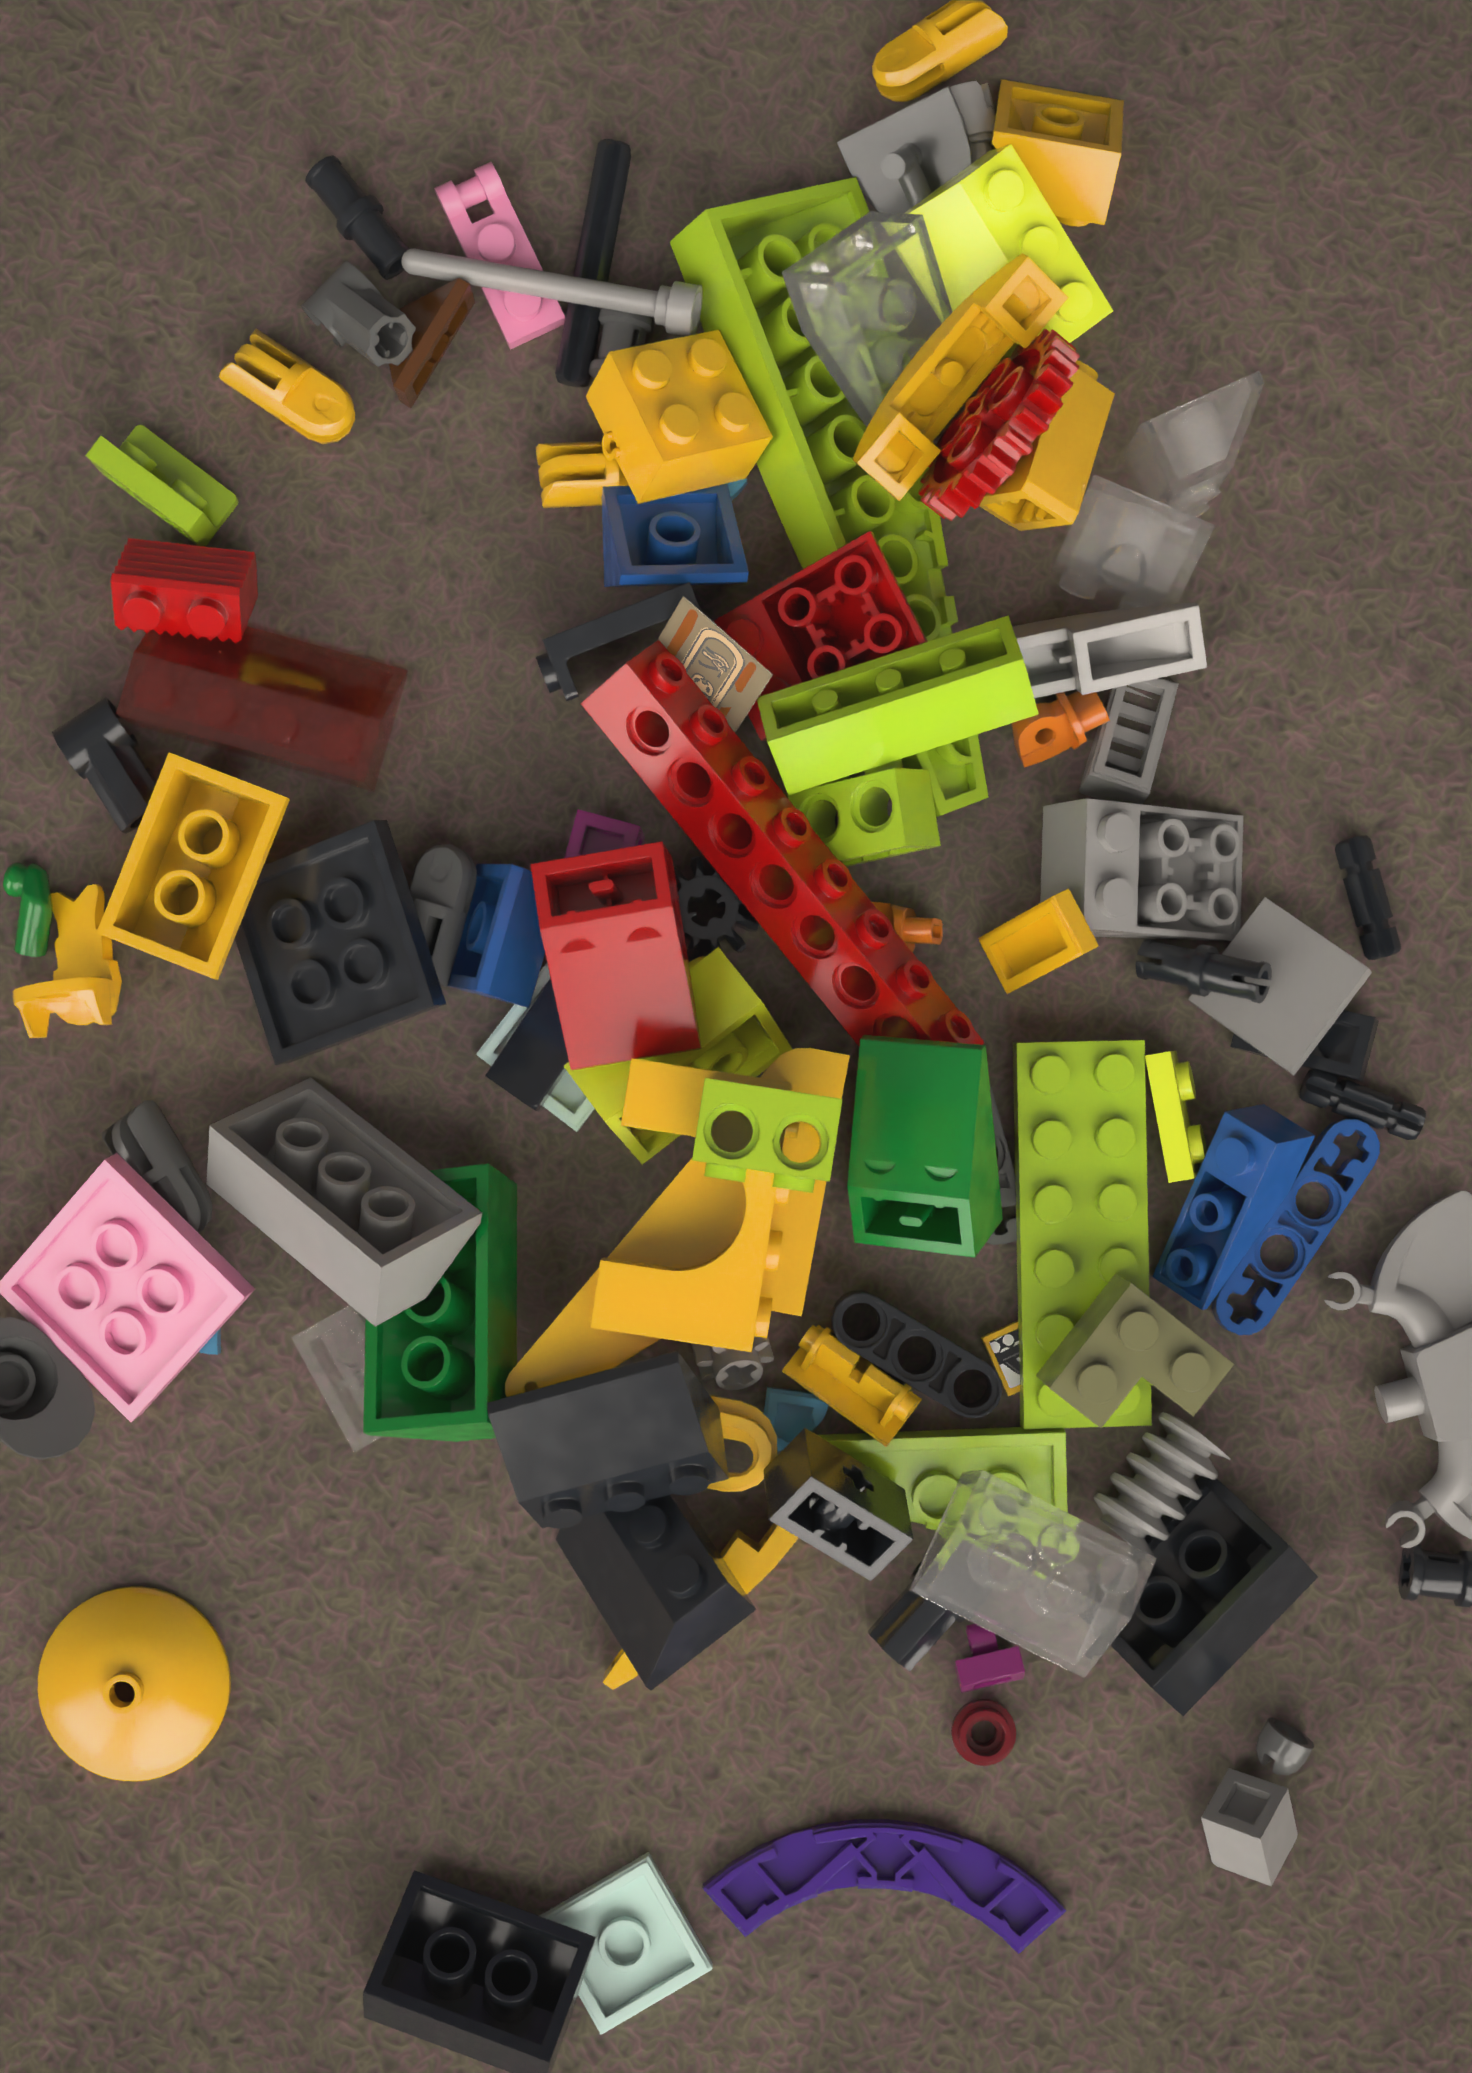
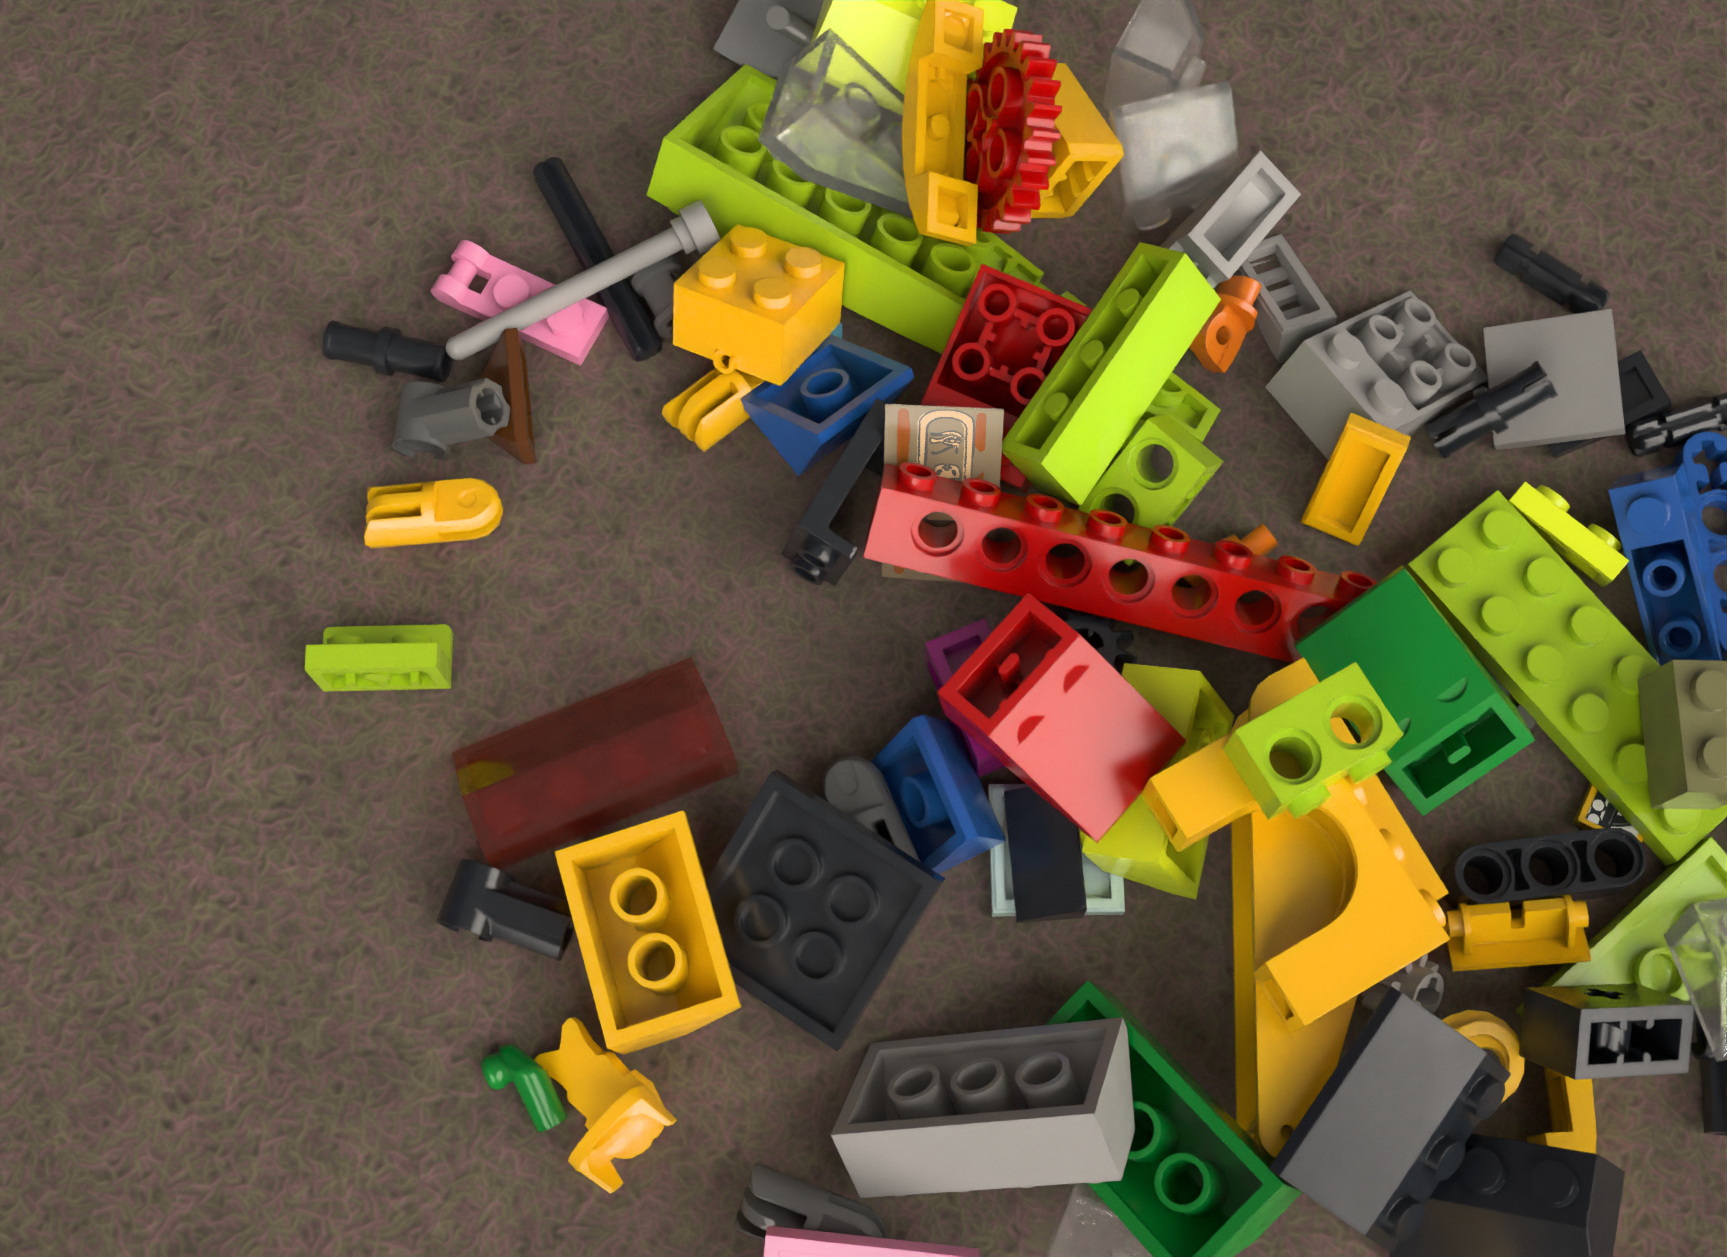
camera: 40 degrees left, 15 degrees down
(184, 589) = (463, 722): red brick -> none
(792, 1412) = (1491, 994): dark azure tile -> none

